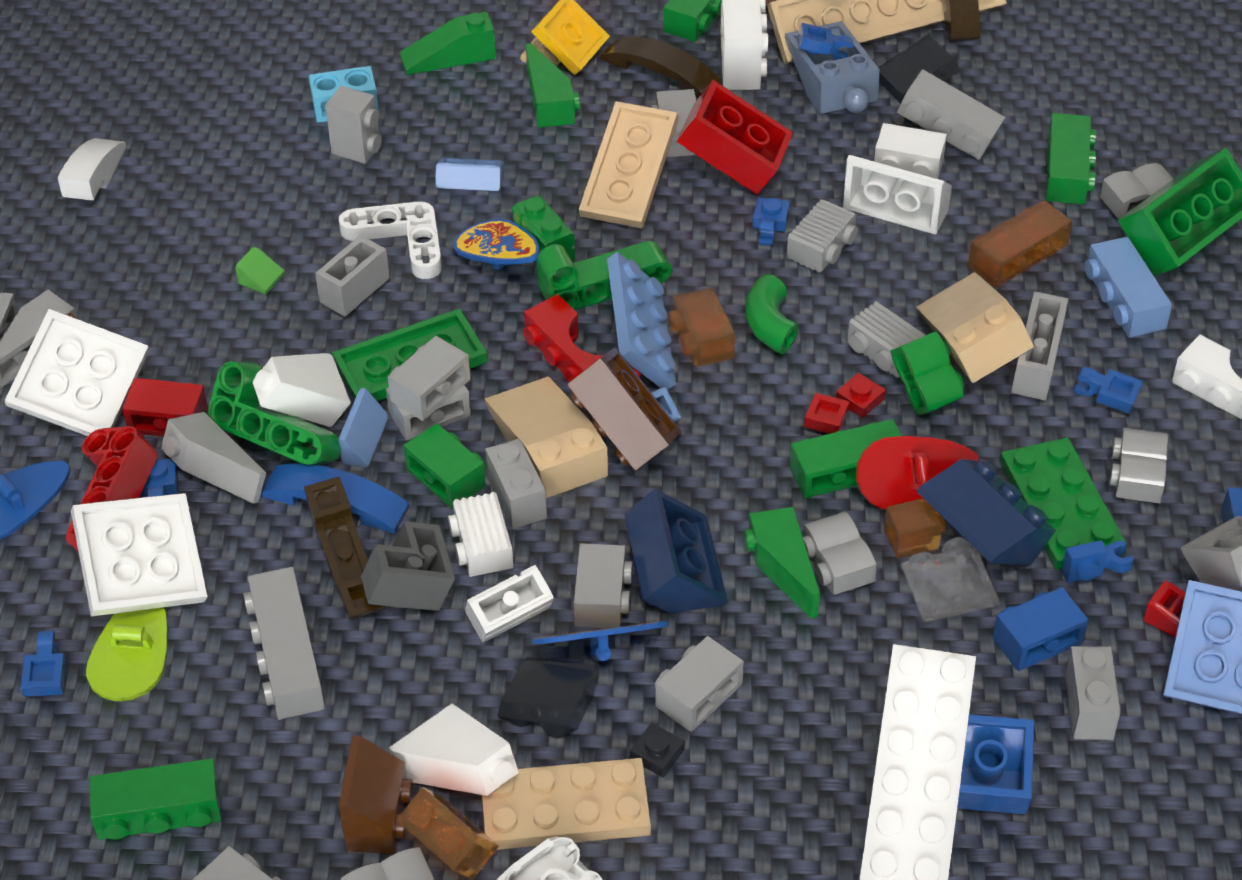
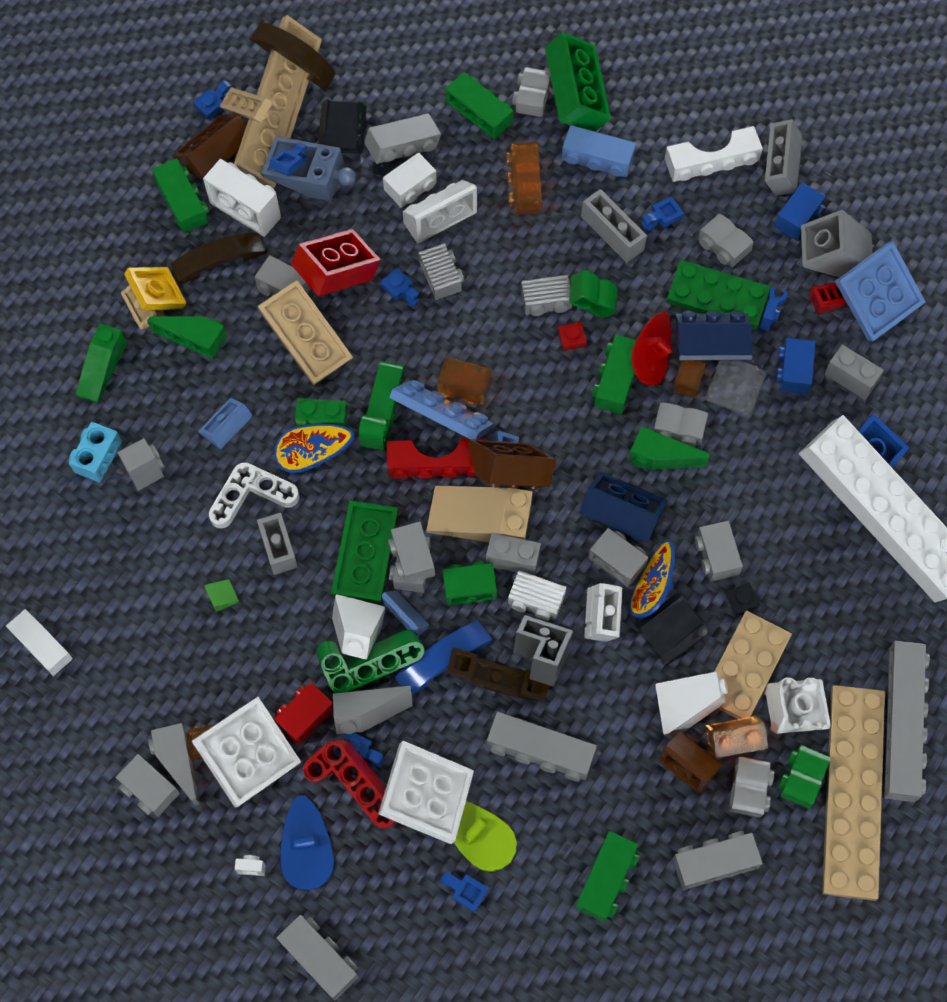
camera: 55 degrees left, 20 degrees up
(764, 314) = (479, 343): green cylinder -> none
(826, 413) = (576, 362): red plate -> none
(977, 326) = (578, 246): tan slope -> none

